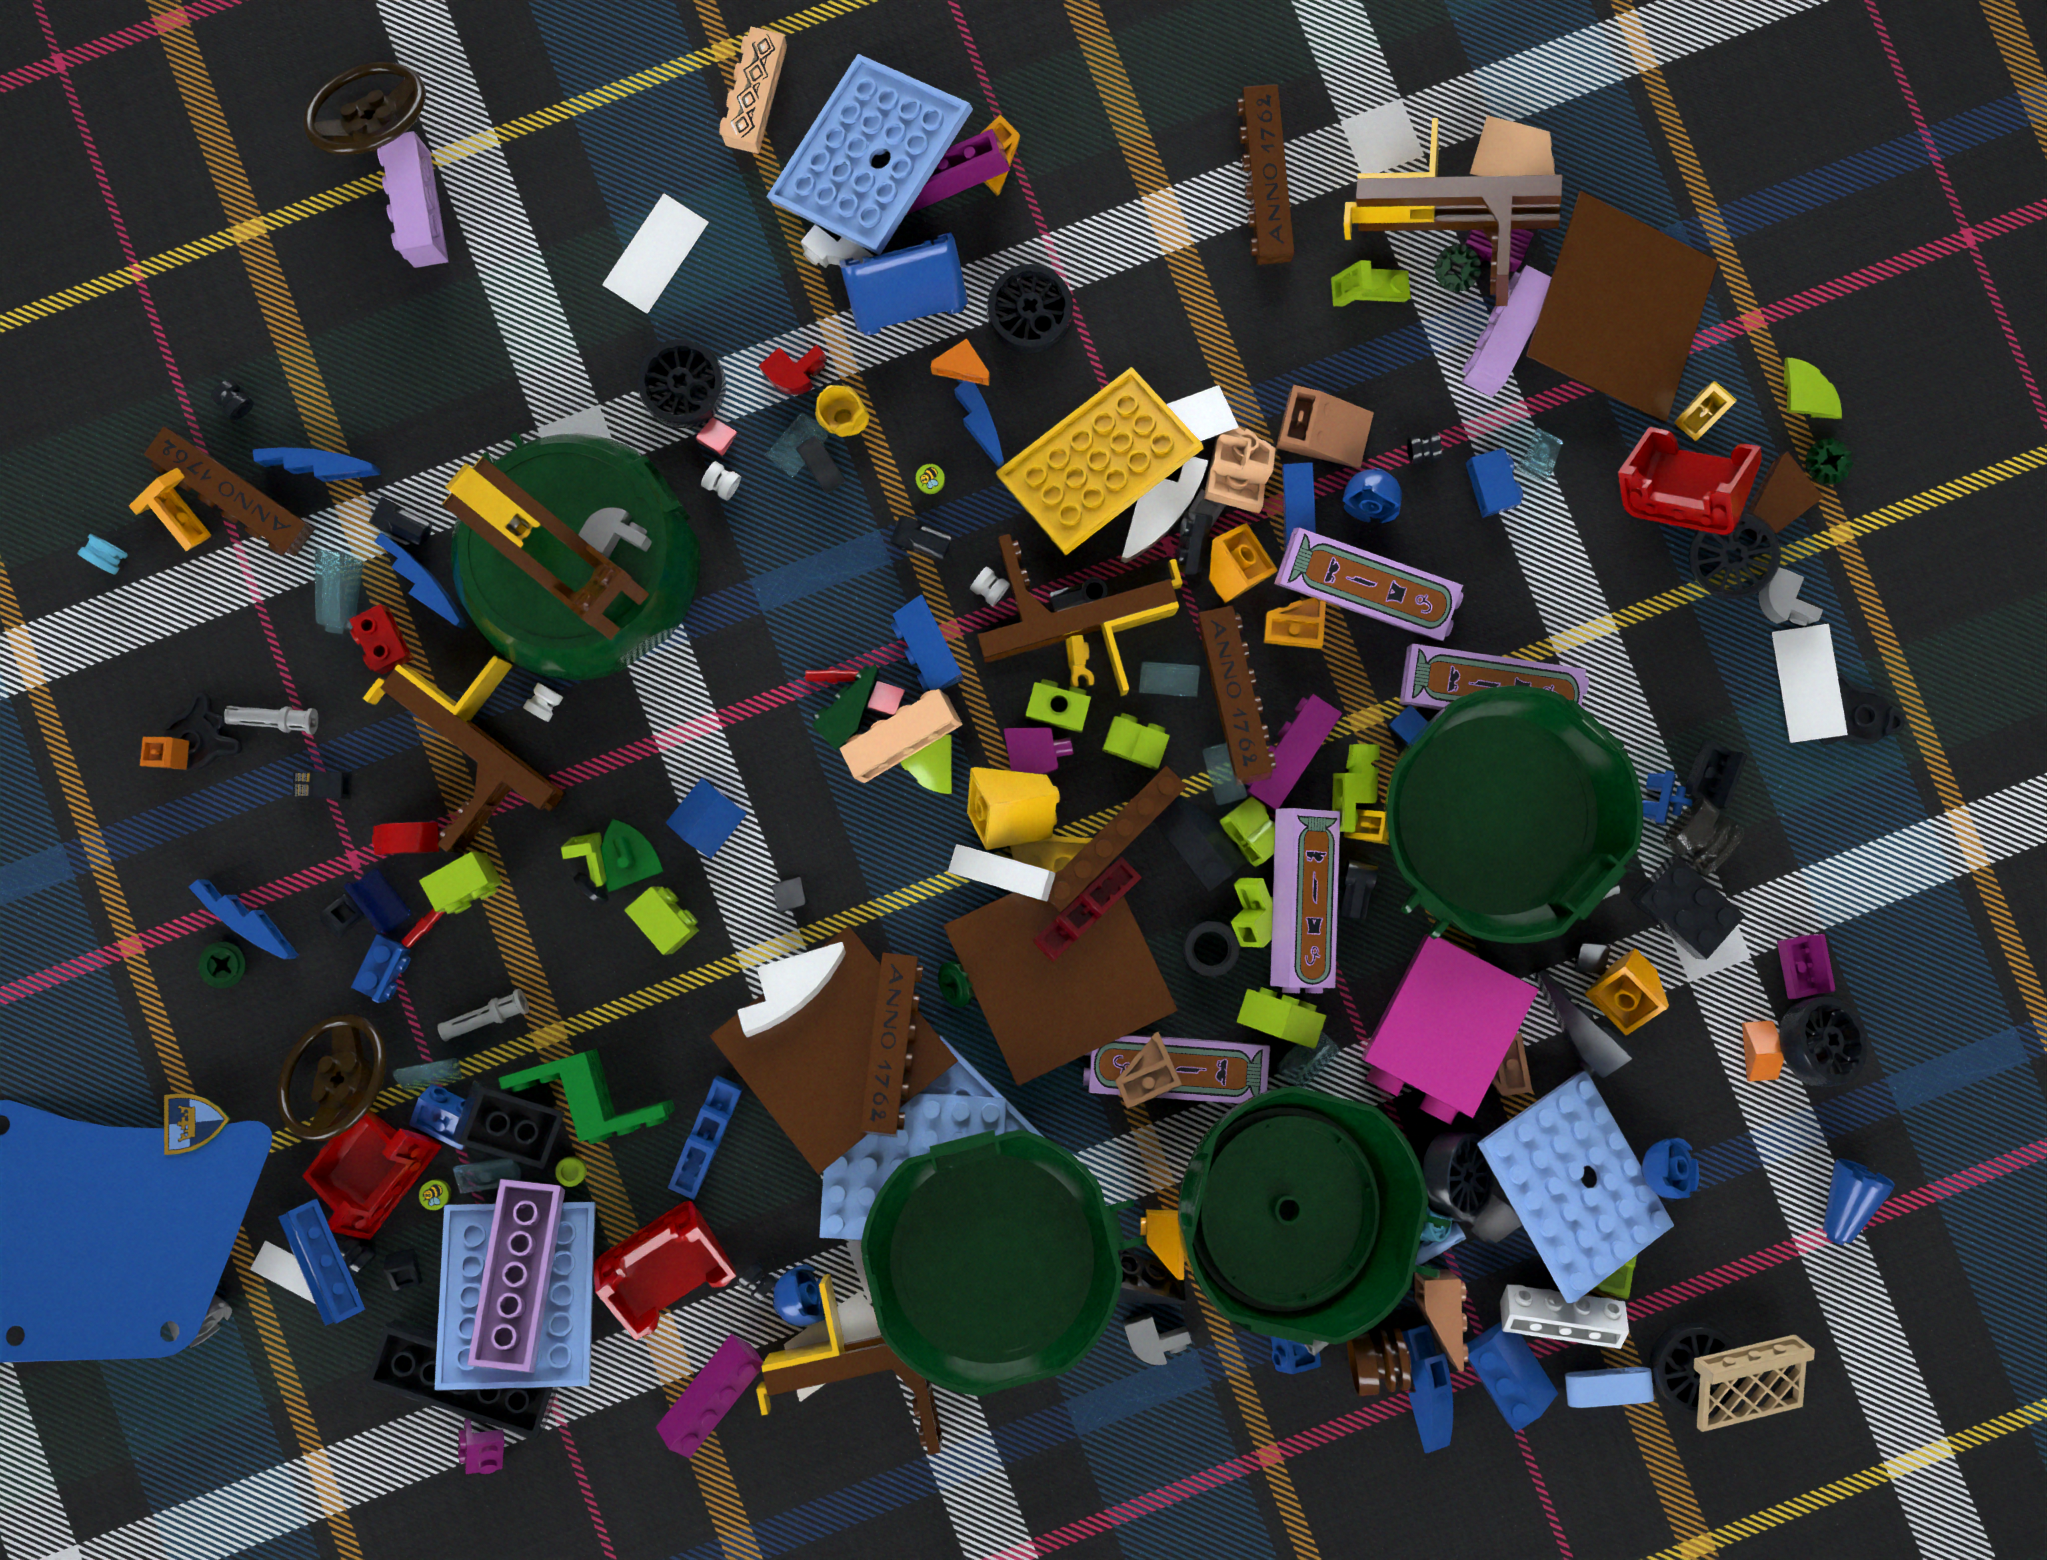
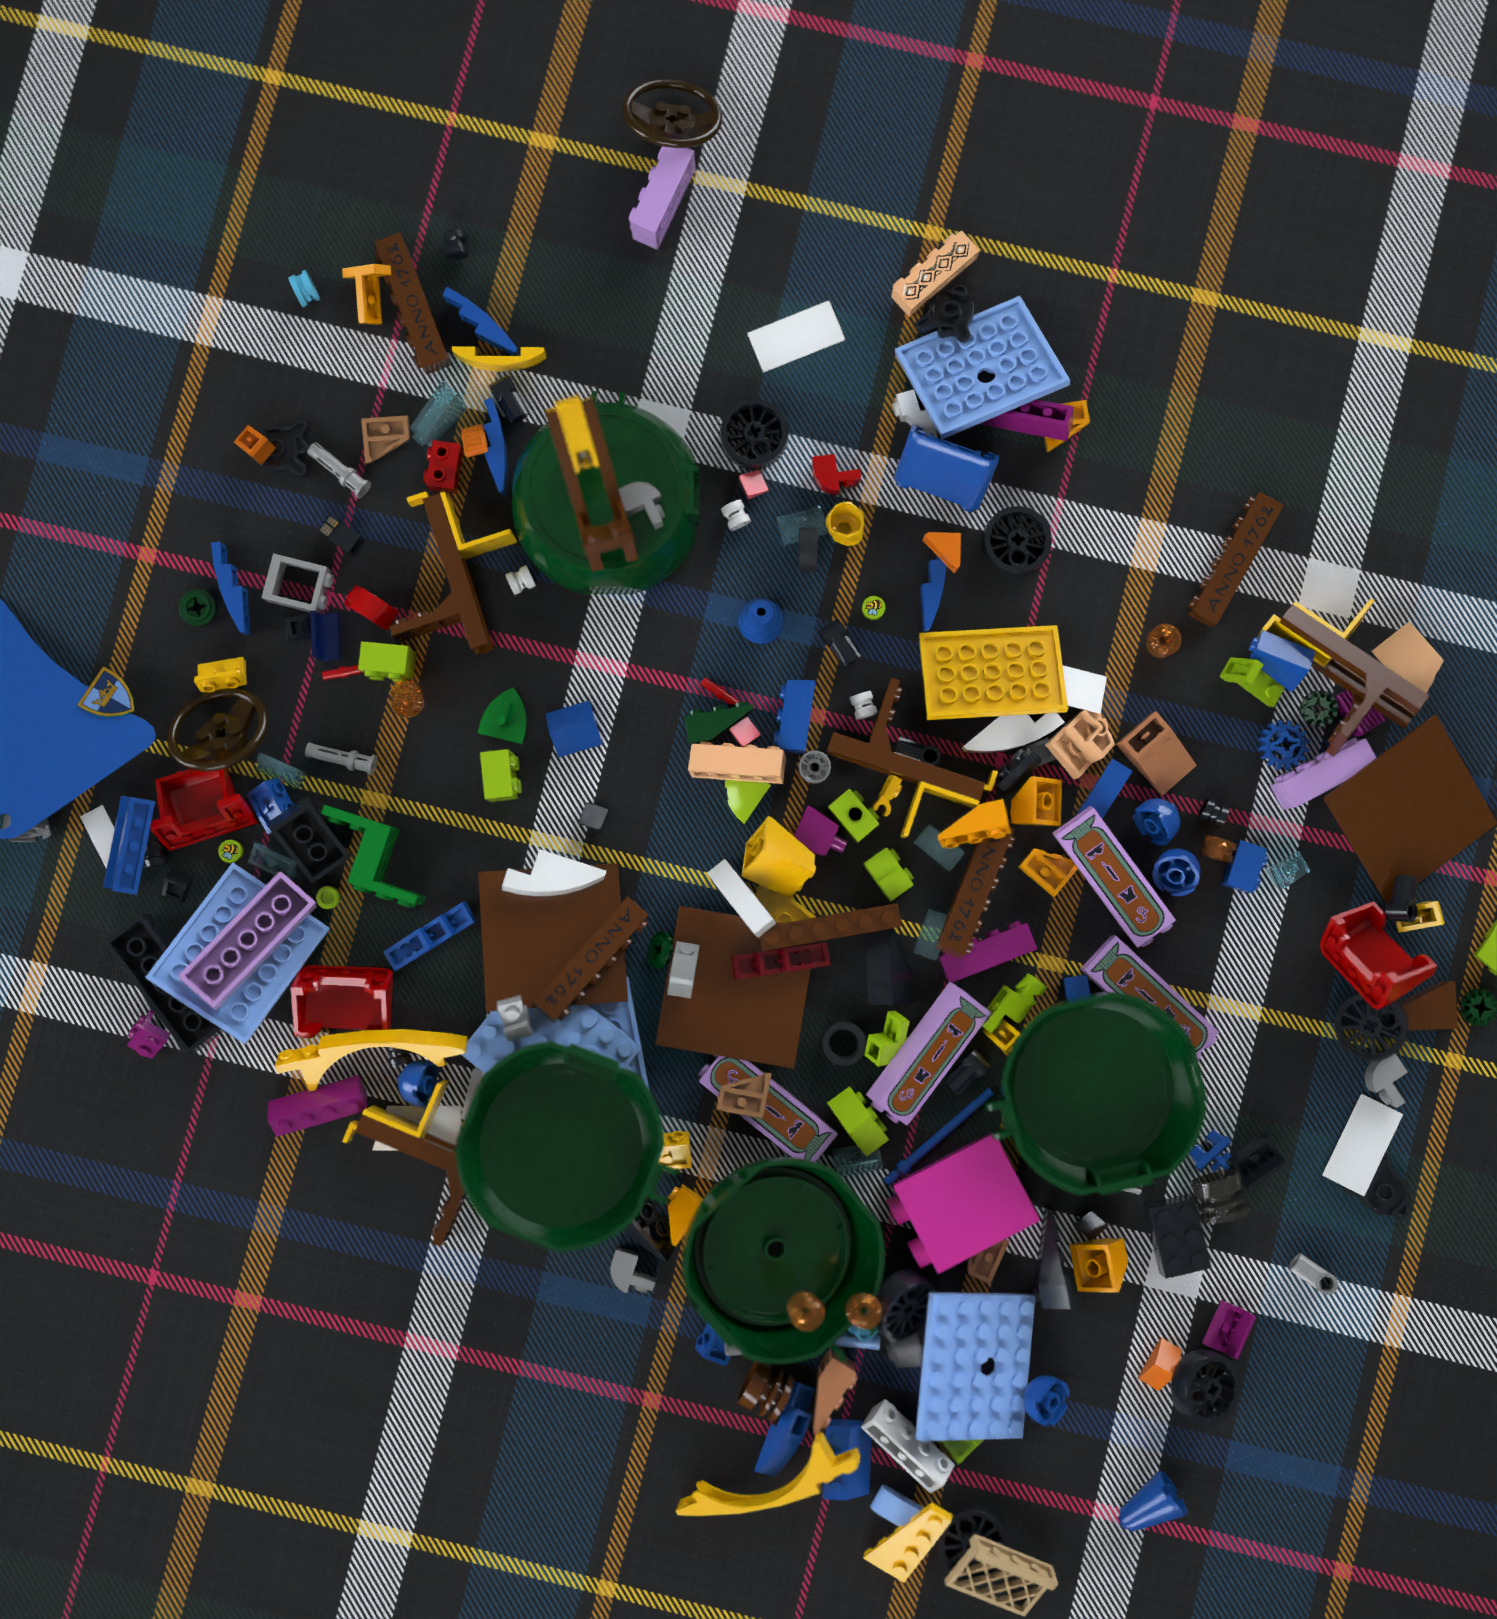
camera: 35 degrees right, 0 degrees up
(283, 876) = (275, 579): none -> light grey window
(294, 650) = (384, 435): none -> medium nougat wing
(296, 1017) = (221, 675): none -> yellow bracket
(381, 969) = (296, 681): blue bracket -> none
(391, 465) = (529, 357): none -> yellow slope
(393, 589) = (474, 440): none -> orange slope
(518, 915) = (404, 707): none -> clear orange wheel
(590, 846) = (485, 695): lime piece -> none
(675, 1348) = (316, 1059): none -> yellow slope
(799, 122) = (949, 314): none -> black tile
(823, 572) = (761, 628): none -> blue cone
(853, 1160) = (515, 1018): none -> light grey brick
(976, 675) = (814, 776): none -> light grey wheel
(993, 988) = (683, 969): none -> light grey brick
(1116, 1179) = (676, 1150): none -> yellow bracket
(1195, 622) = (982, 822): none -> light orange slope
(1251, 830) = (924, 984): lime brick -> none
(1259, 299) = (1173, 640): none -> clear orange wheel
(1361, 1032) = (904, 1166): none -> blue bar
(1375, 1256) = (811, 1318): none -> clear orange wheel
(1386, 242) = (1282, 659): none -> blue slope
(1429, 535) = (1176, 872): none -> blue cylinder
(1430, 1199) = (872, 1305): none -> clear orange wheel
(1453, 339) = (1282, 736): none -> blue gear
(1455, 482) = (1218, 849): none -> clear orange wheel
(1491, 1401) = (821, 1467): none -> yellow slope
(1635, 1415) = (909, 1543): none -> yellow wing
(1680, 410) = (1402, 906): none -> black piece
(1851, 850) = (1312, 1274): none -> light grey piece

